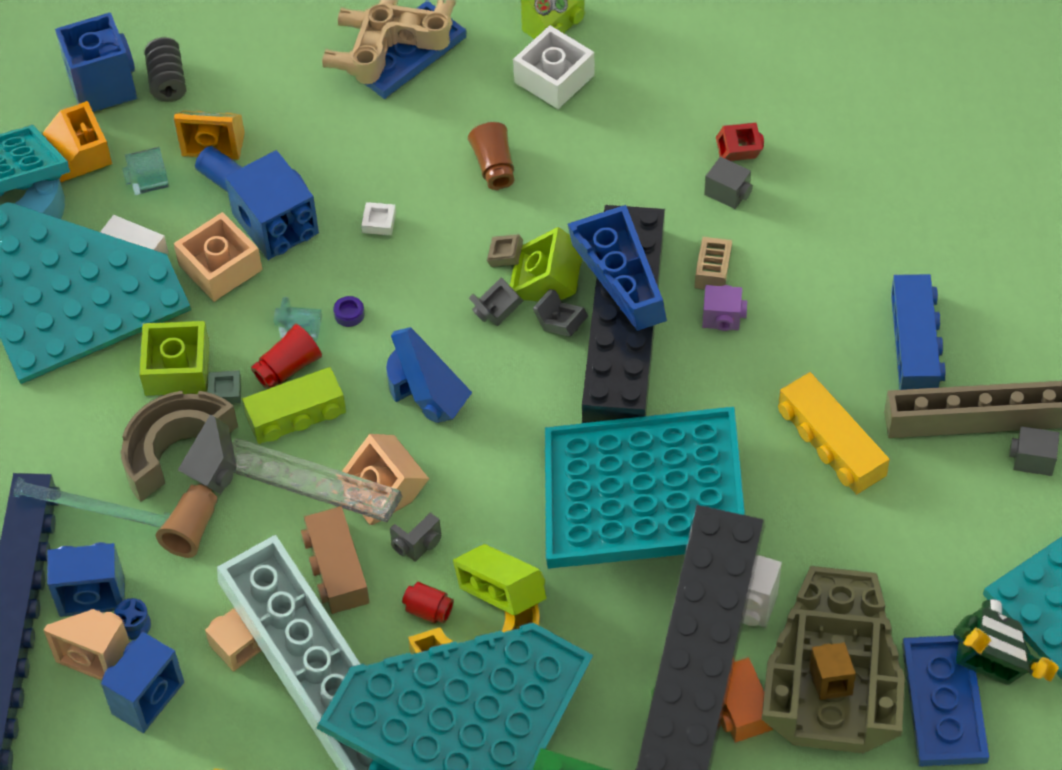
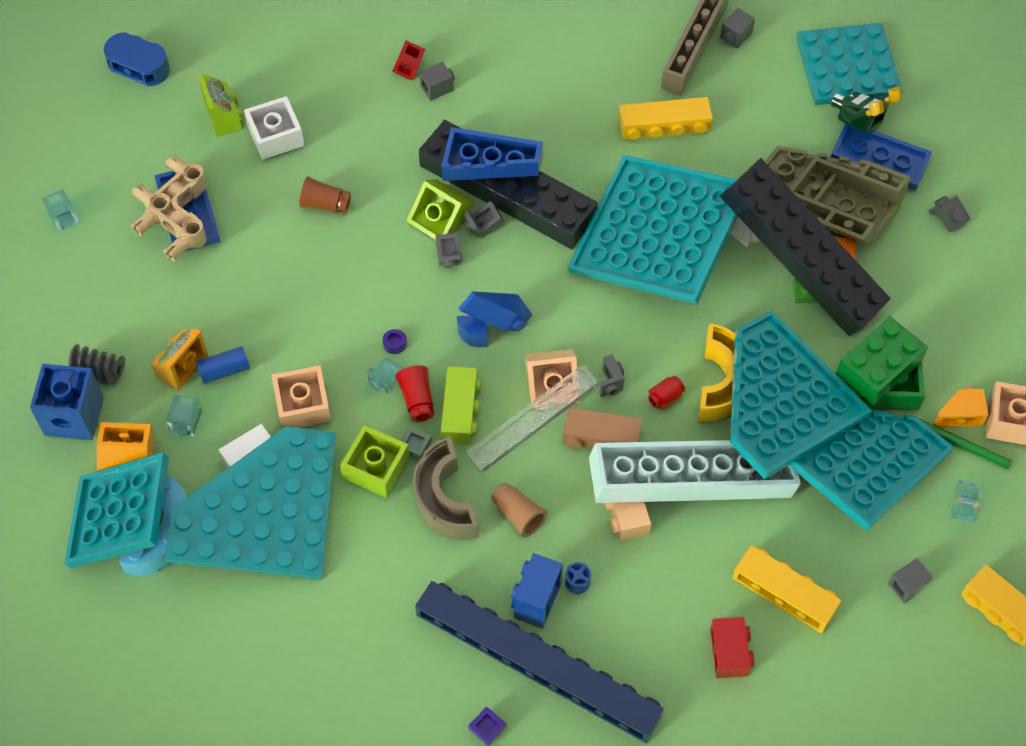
camera: 65 degrees left, 5 degrees up
(88, 641) = (598, 606): light nougat slope -> none
(89, 504) = (438, 601): clear light blue bar -> none
(142, 681) = (643, 586): blue brick -> none
(211, 456) = (481, 470): dark grey slope -> none
(272, 204) = (280, 342): blue brick -> none
(378, 218) = (329, 288): white plate -> none
(500, 579) = (683, 337): lime brick -> none
(505, 250) = (406, 227): dark tan tile -> none
(713, 278) = (507, 119): tan slope -> none
(723, 307) = (535, 127): medium lavender brick -> none
(832, 671) = (841, 194): pearl gold brick -> none
(916, 332) = (617, 43): blue brick -> none

